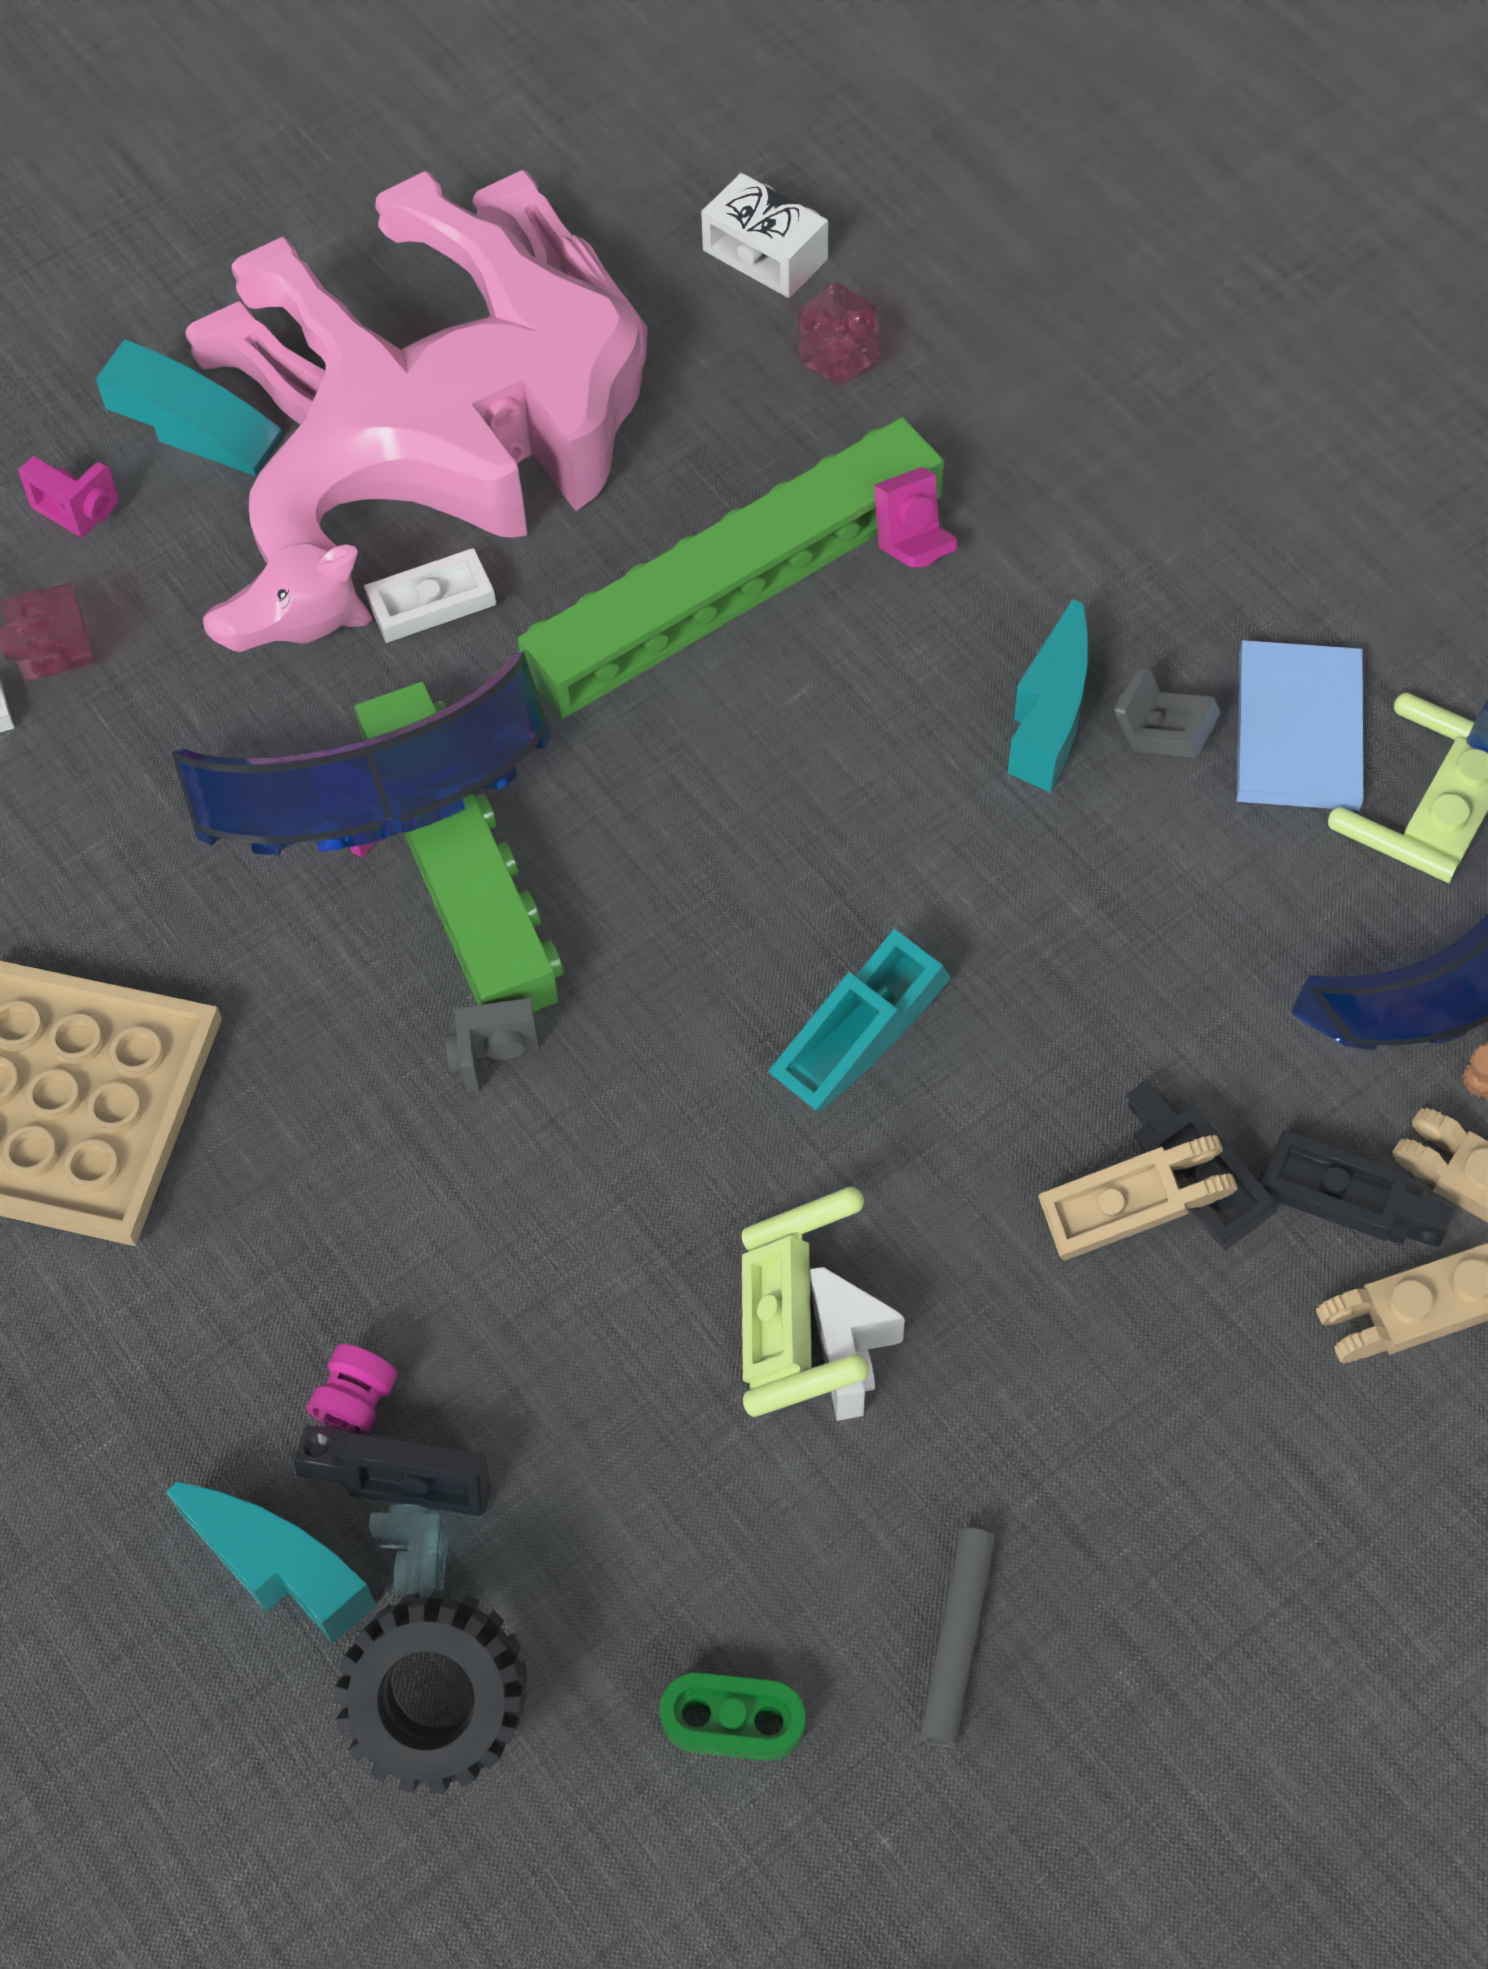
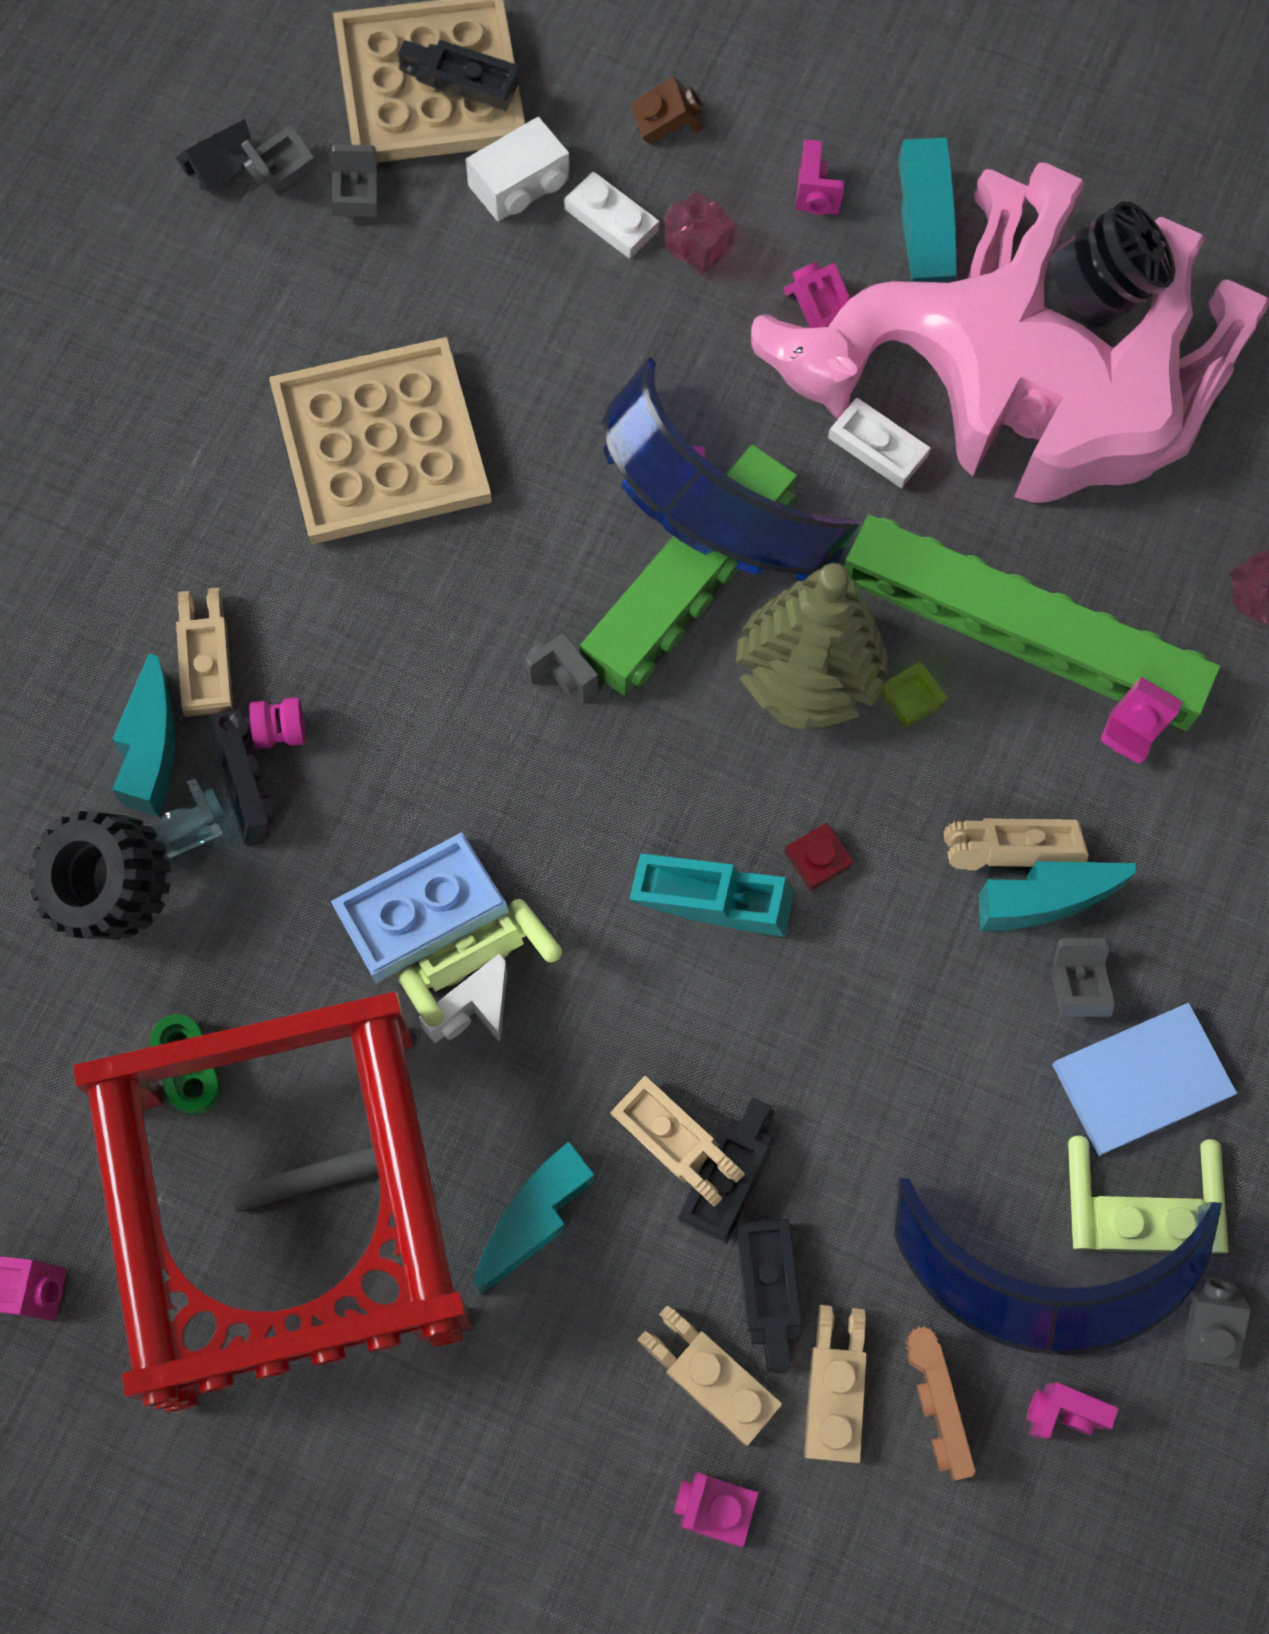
camera: 55 degrees right, 10 degrees up
(202, 1439) = (203, 657): none -> tan hinge
(211, 558) = (818, 293): none -> dark pink bracket
(401, 272) = (1113, 264): none -> black wheel
(649, 758) = (814, 652): none -> olive plant
(690, 1343) = (419, 907): none -> light blue tile
(748, 712) = (913, 694): none -> clear neon green plate
(877, 899) = (818, 856): none -> dark red plate
(977, 703) = (1014, 842): none -> tan hinge
(1121, 1873) = (427, 1305): none -> red arch
(1142, 1399) = (532, 1217): none -> teal slope

